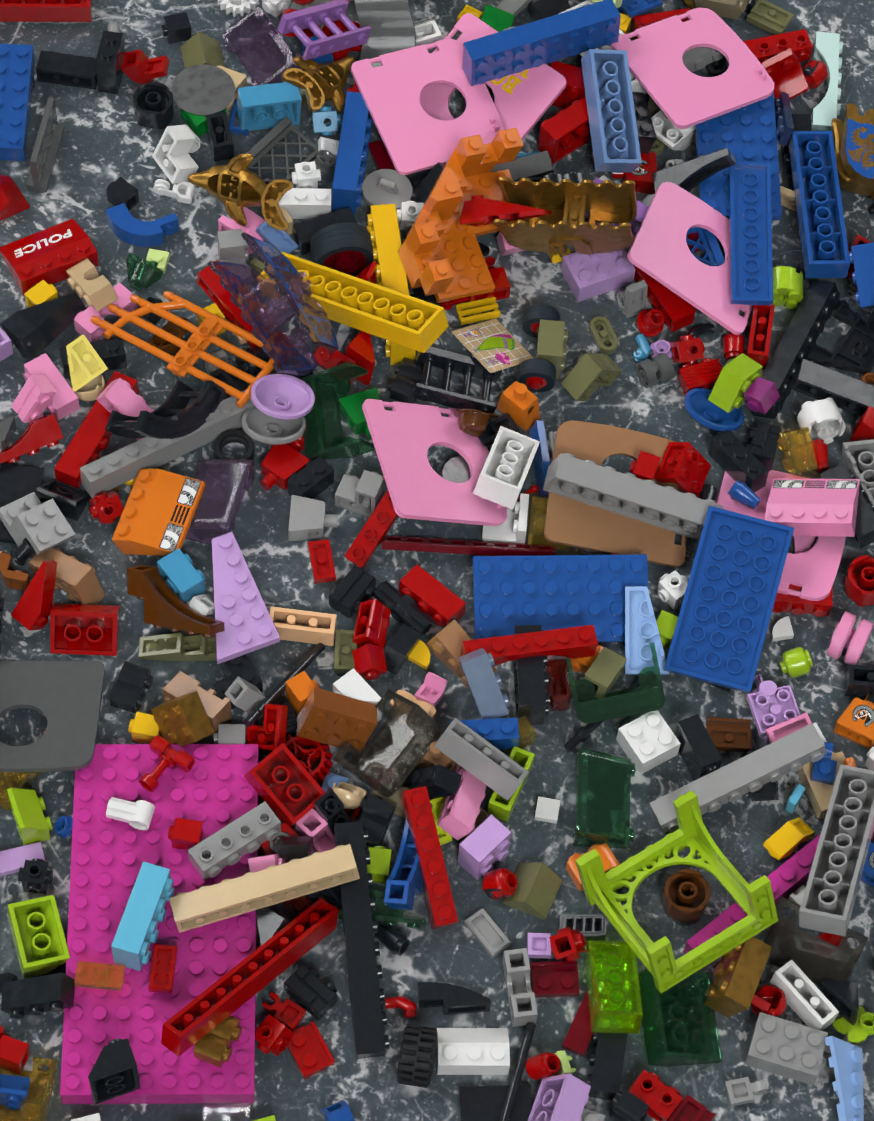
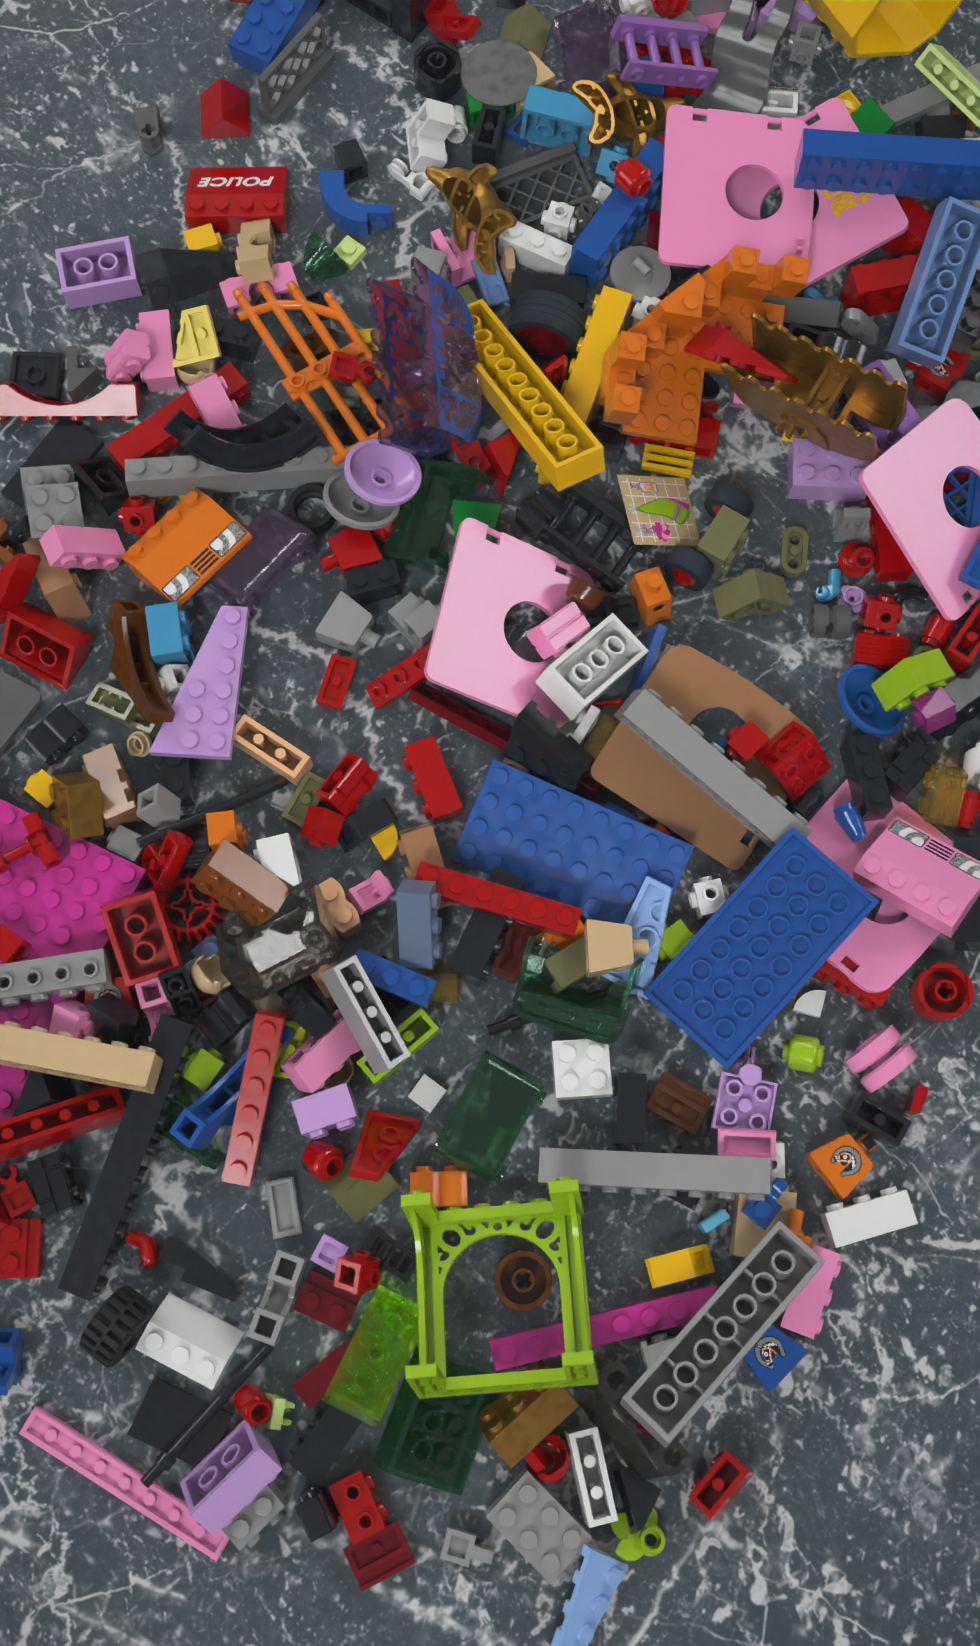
camera: 30 degrees right, 15 degrees up
(81, 543) = (82, 547): none -> bright pink brick
(191, 666) = (139, 744): none -> tan plate
(215, 336) = (346, 368): none -> red plate
(352, 123) = (632, 177): none -> red head
(352, 591) = (350, 733): black brick -> none
(394, 941) = (174, 1166): black cone -> none
(403, 608) = (395, 778): black piece -> none
(469, 453) = (559, 630): none -> bright pink brick
(507, 535) = (546, 750): none -> black wedge
(535, 850) = (381, 1143): none -> red wing
(566, 162) = (859, 326): none -> light grey beam
(625, 644) = (610, 947): none -> tan torso

